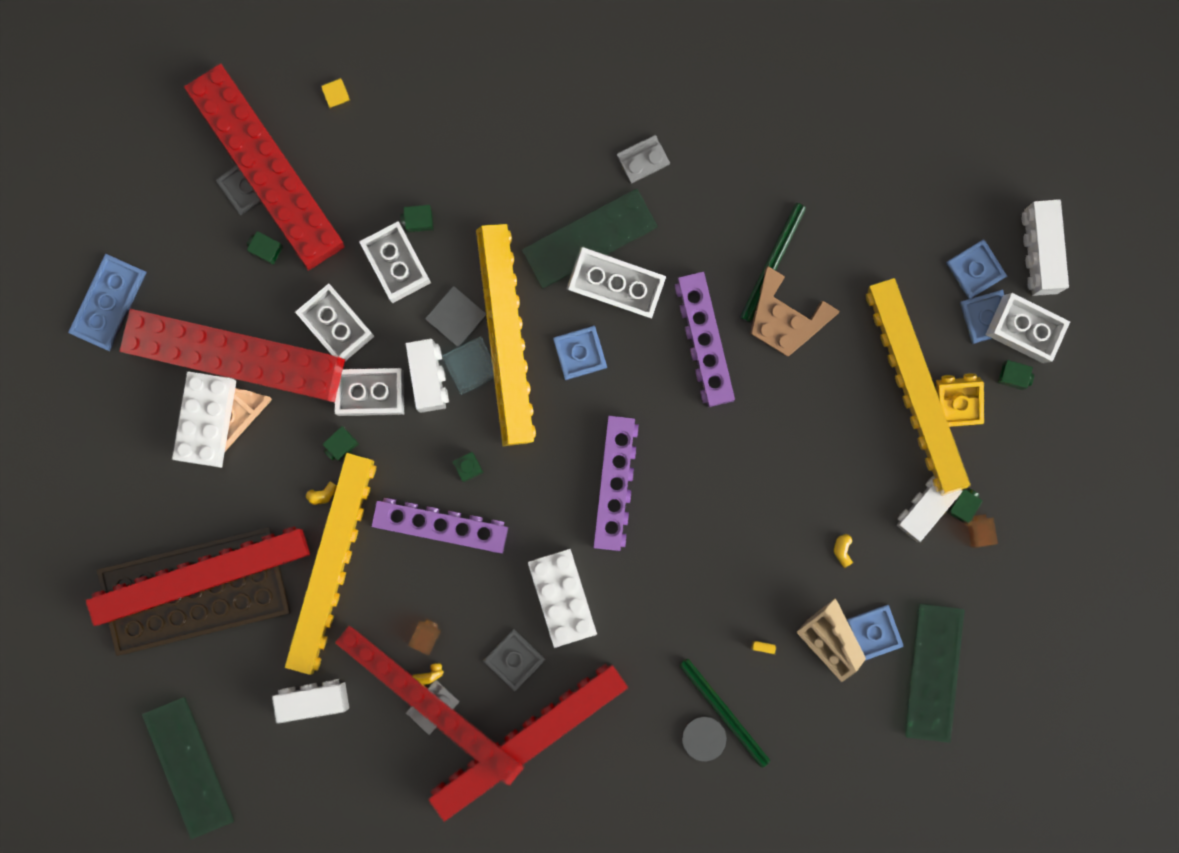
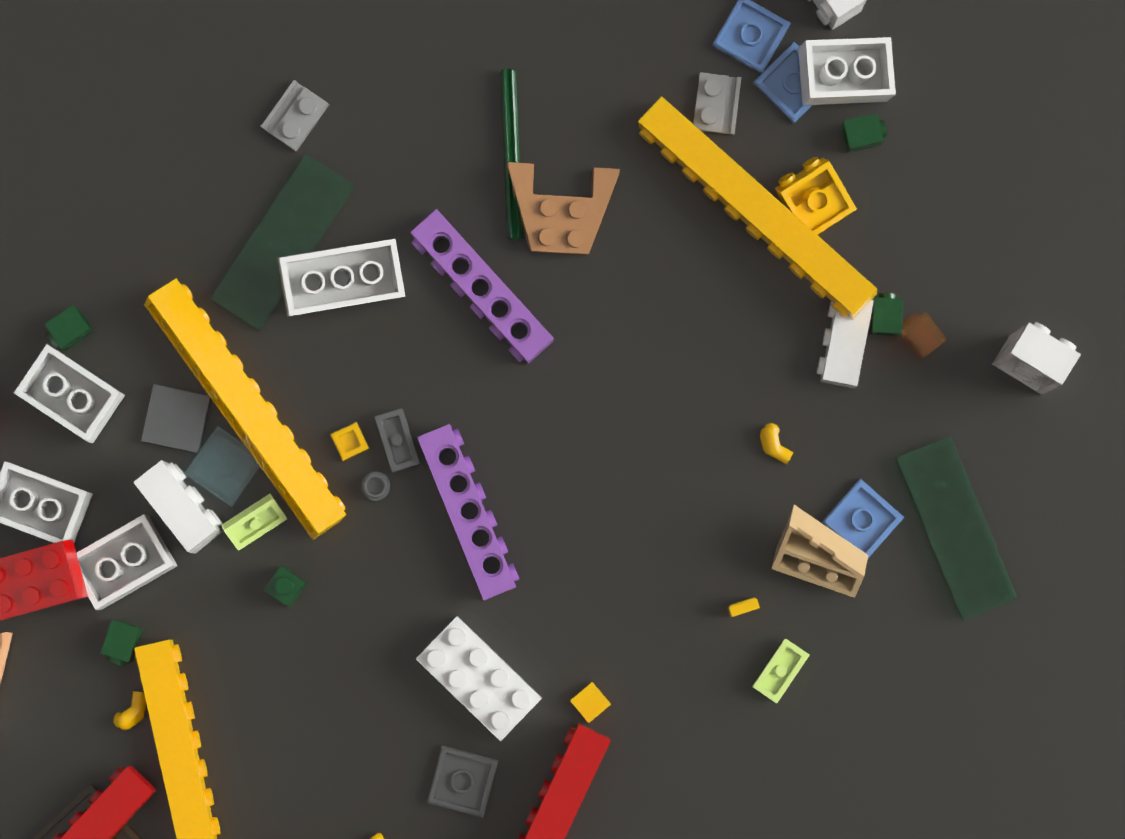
camera: 30 degrees left, 0 degrees up
(383, 520) = (220, 702): medium lavender brick -> none
(425, 636) = (344, 811): clear orange brick -> none
(470, 413) = (254, 522): none -> yellowish green plate
(562, 394) = (349, 441): none -> yellow tile
(563, 433) = (375, 486): none -> dark grey plate
(580, 352) = (344, 381): medium blue tile -> none
(594, 410) = (397, 440): none -> dark grey plate
(627, 654) = (590, 702): none -> yellow tile
(704, 738) = (732, 751): dark grey tile -> none
(725, 713) = (740, 708): dark green axle -> none
(765, 703) = (780, 670): none -> yellowish green plate
(928, 303) = (717, 103): none -> light grey plate
(1052, 589) = (1037, 358): none -> white brick

